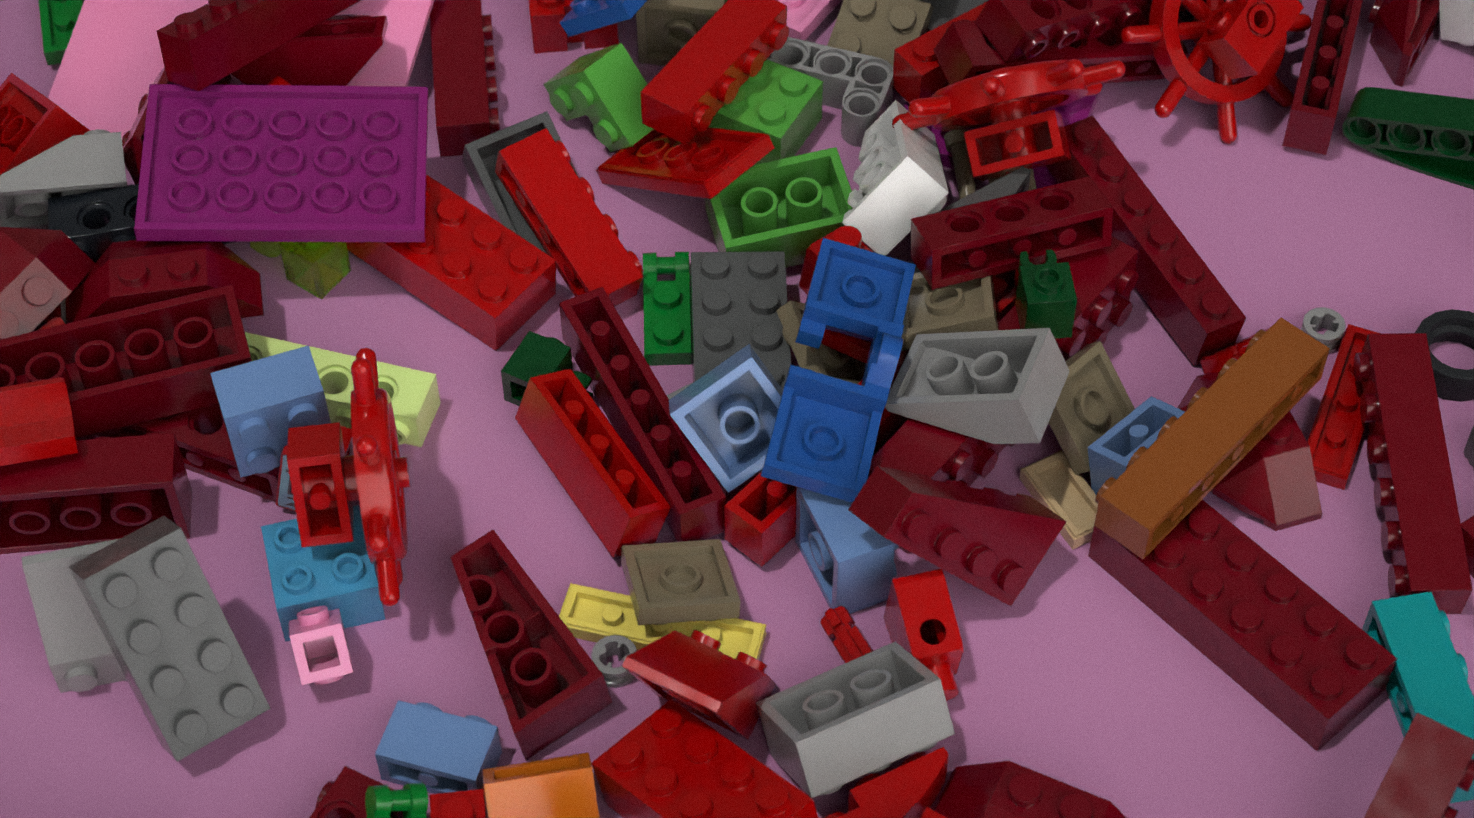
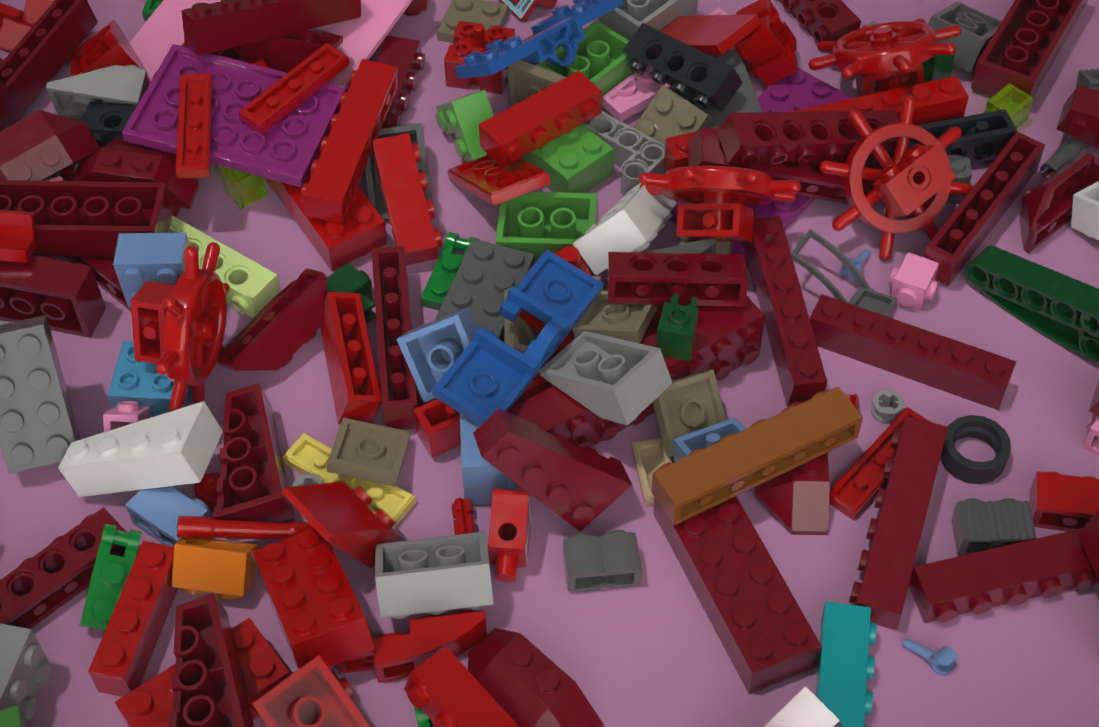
camera: 20 degrees right, 0 degrees up
(239, 193) = (194, 126): none -> red tile
(357, 105) = (294, 88): none -> red tile
(374, 675) = (144, 454): none -> white wedge
(468, 161) = (349, 142): none -> red brick
(471, 443) = (279, 327): none -> dark red wedge
(477, 696) = (206, 490): none -> red tile
(516, 748) = (209, 528): none -> red piece
(1057, 636) = (601, 561): none -> dark grey brick
(1197, 159) = (858, 262): none -> medium blue hand
(1232, 202) = (864, 296): none -> dark grey piece
(1284, 159) = (914, 281): none -> bright pink brick
(1329, 251) = (911, 352): none -> dark red brick

